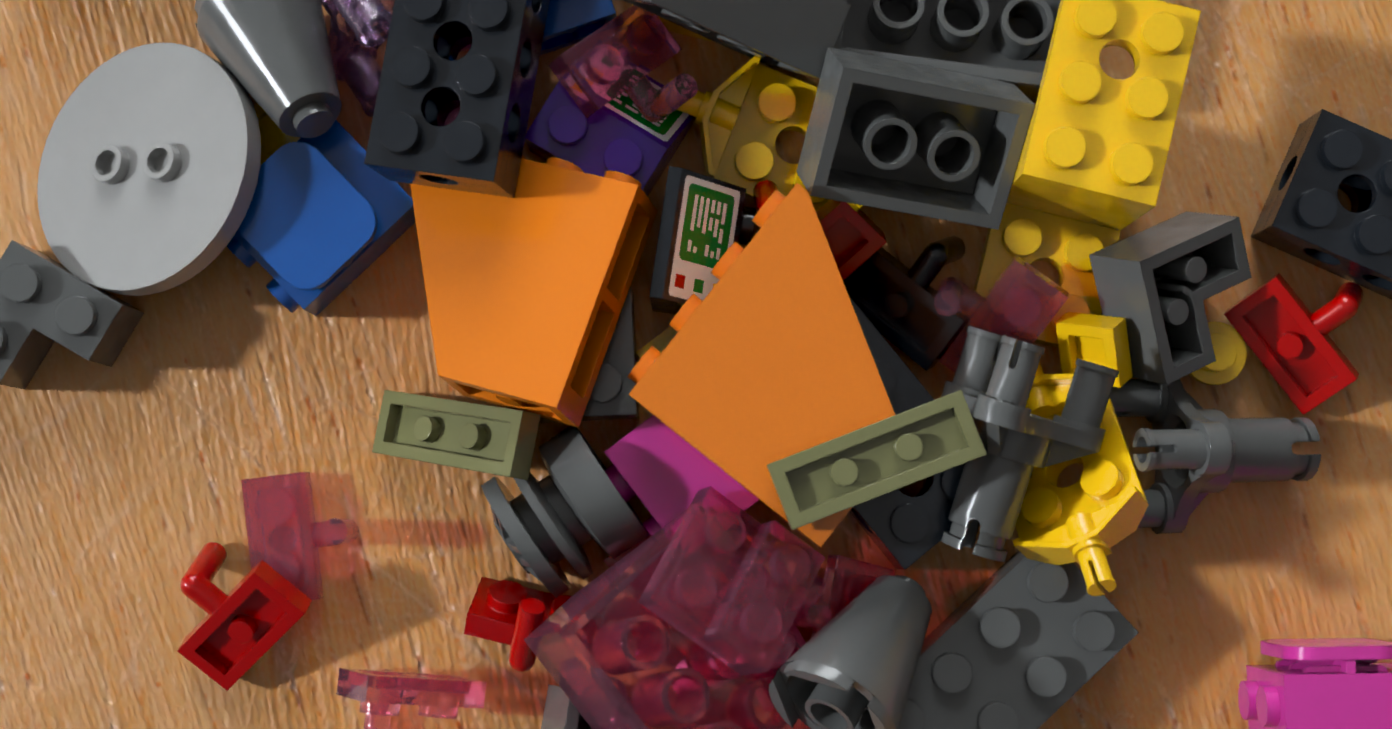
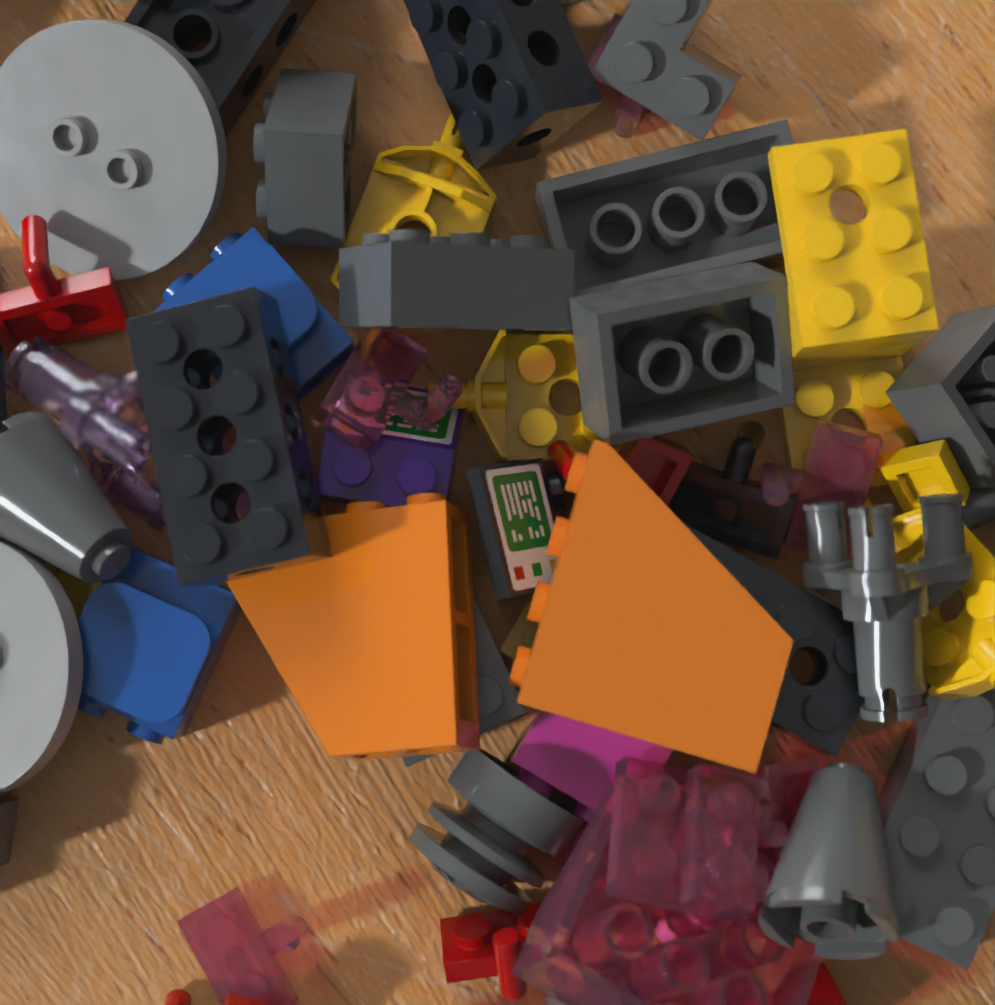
camera: 25 degrees left, 0 degrees up
(457, 434) = (365, 799): olive plate -> none
(876, 459) = (776, 672): olive plate -> none

